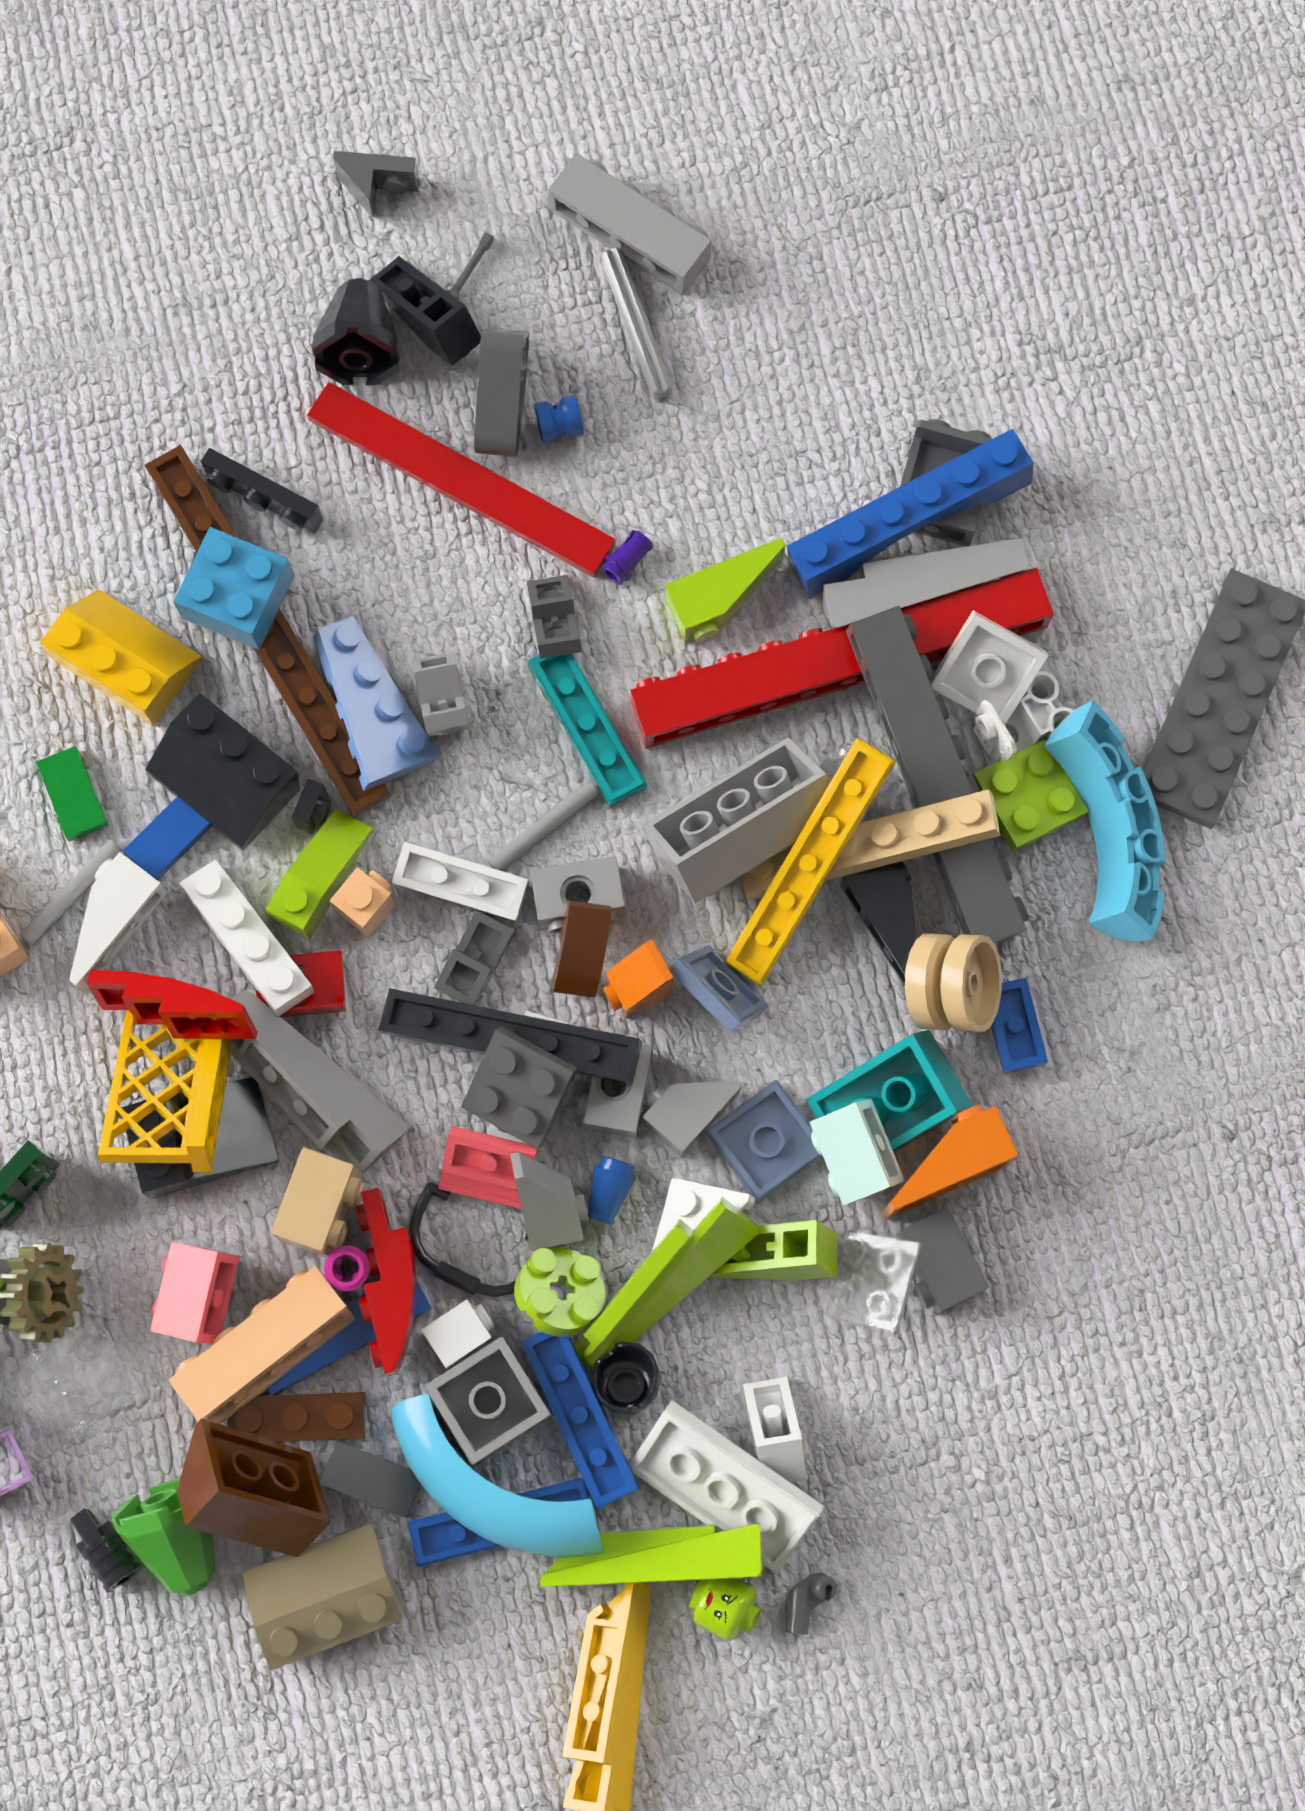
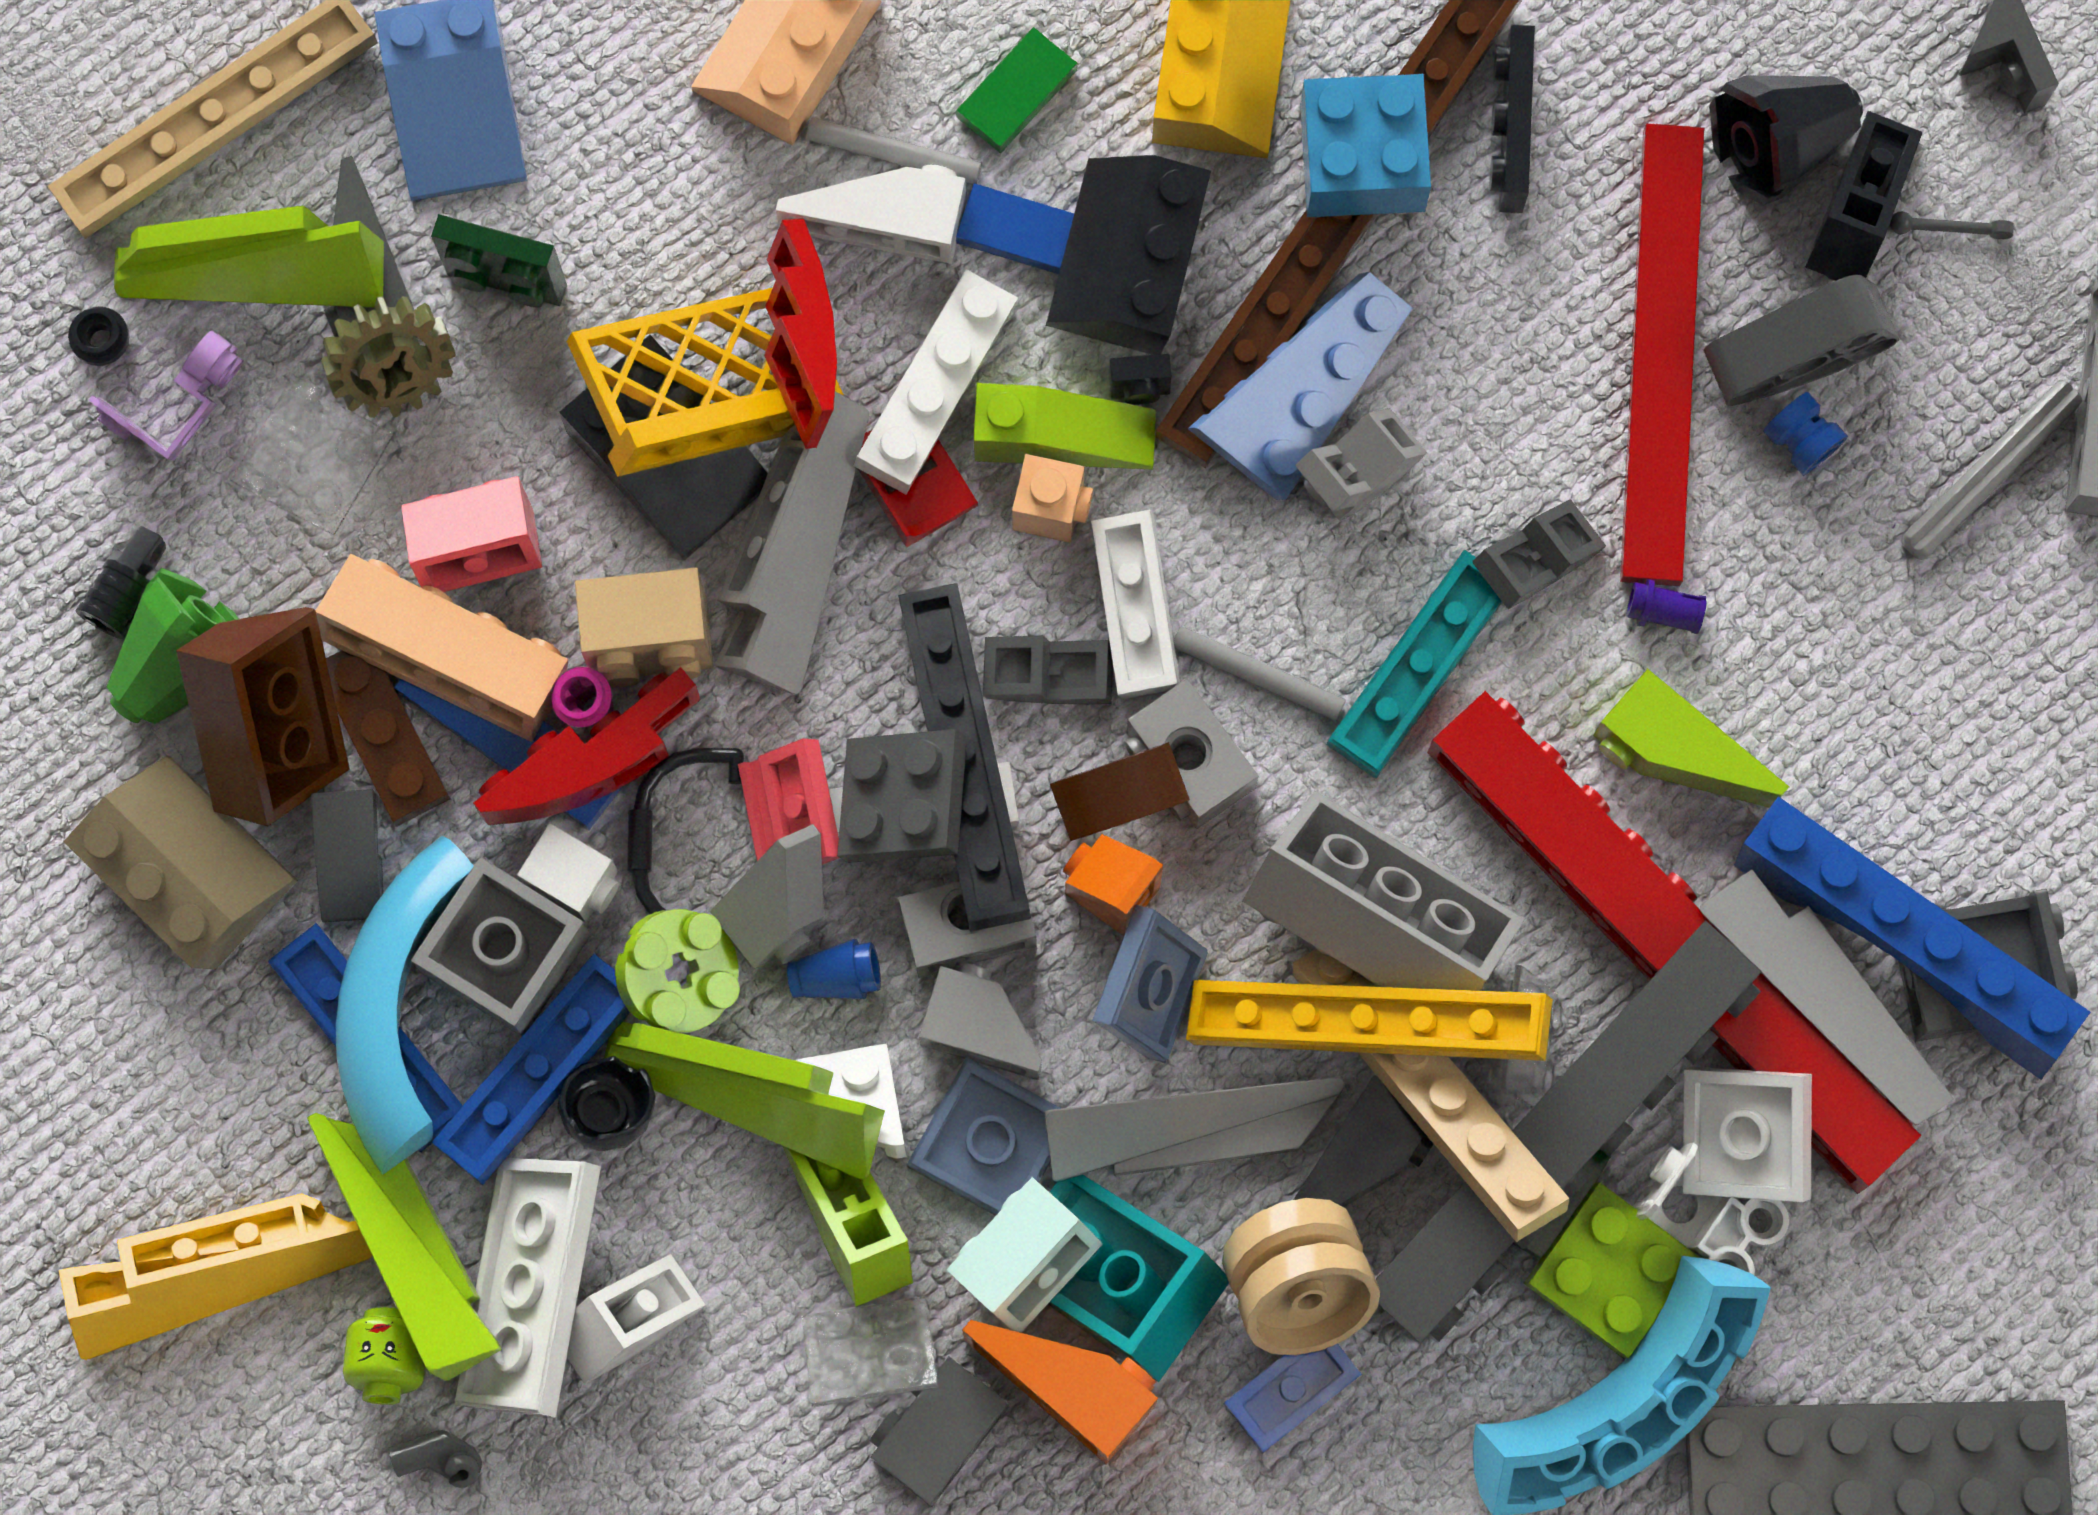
camera: 65 degrees right, 0 degrees up
(820, 1012) = (1187, 1128): none -> light grey wedge

